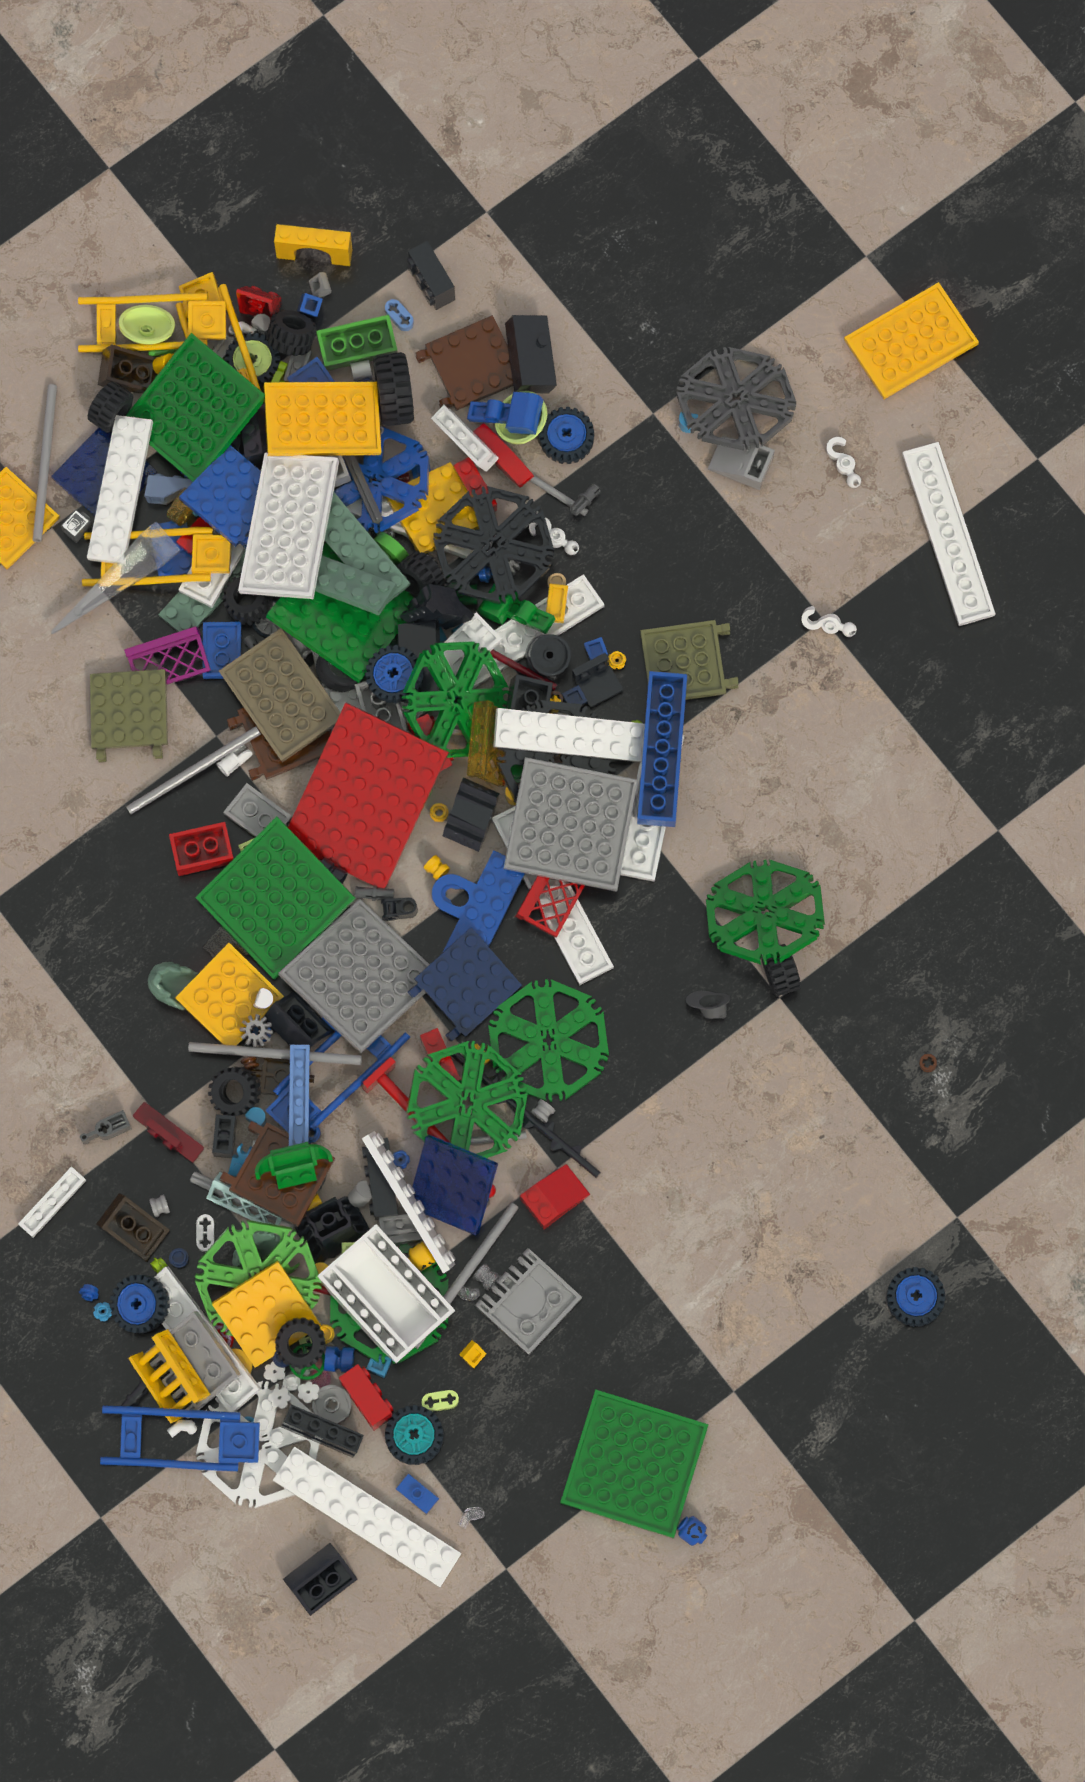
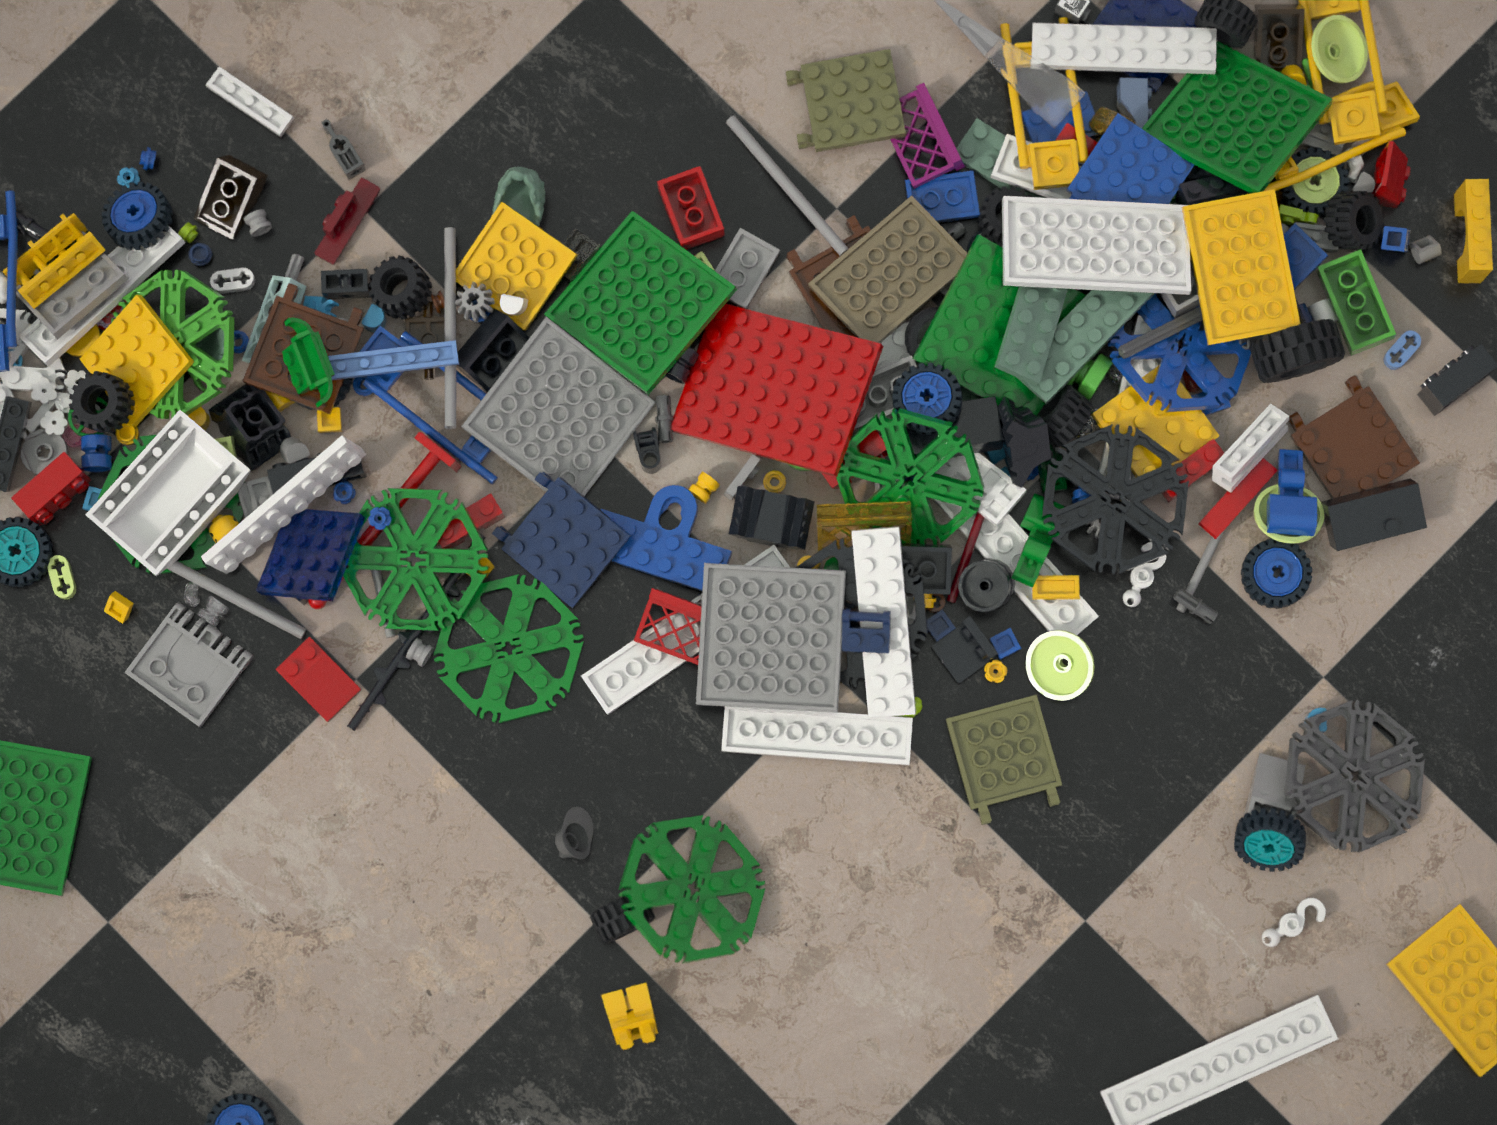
camera: 85 degrees right, 5 degrees up
(152, 1371) = (55, 240): none -> yellow hinge
(234, 760) = (806, 231): white hinge -> none
(340, 1165) = (329, 423): none -> yellow plate
(432, 835) = (749, 470): none -> light grey plate
(436, 1121) = (380, 524): none -> blue plate
(556, 578) = (1087, 585): tan plate -> none
(582, 747) = (864, 638): none -> dark blue plate
(627, 616) = (1050, 674): none -> yellowish green dish
(662, 749) = (883, 738): blue brick -> none
(779, 467) = (1270, 839): none -> black wheel
(830, 623) = (1079, 927): white piece -> none
(866, 976) = (634, 1023): none -> yellow hips
(924, 1058) = (528, 1118): reddish brown bush -> none

